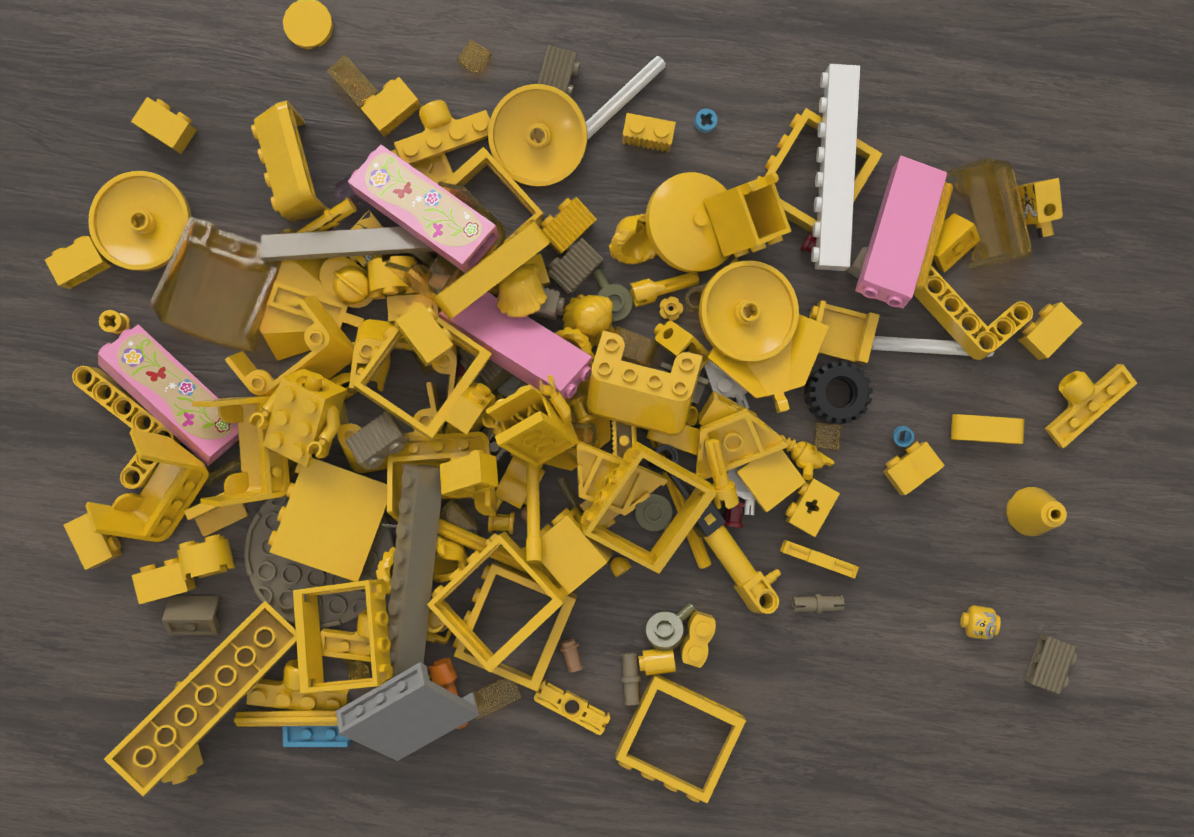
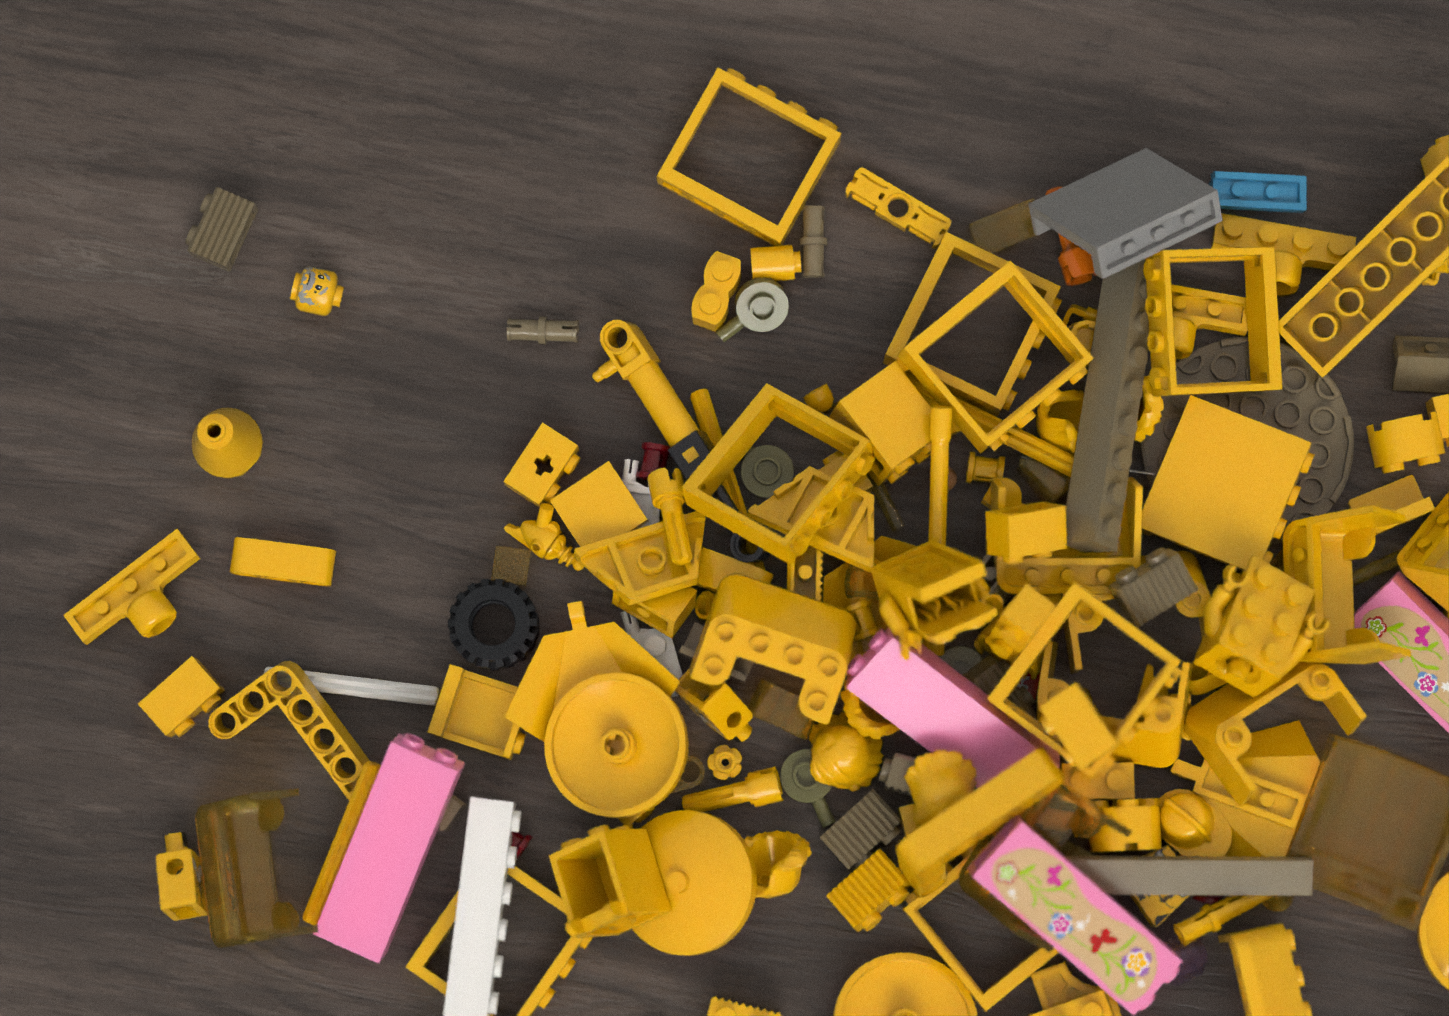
camera: 170 degrees left, 5 degrees down
(286, 718) = (1296, 214): yellow axle -> none
(357, 669) = (1198, 276): clear yellow piece -> none
(513, 484) = (964, 520): yellow brick -> none
(571, 655) = (895, 278): medium nougat pin -> none
(819, 559) = (536, 393): yellow piece -> none
(908, 436) = (396, 558): dark azure hinge -> none
(913, 467) = (393, 513): yellow brick -> none
(955, 240) = (308, 836): yellow panel -> none

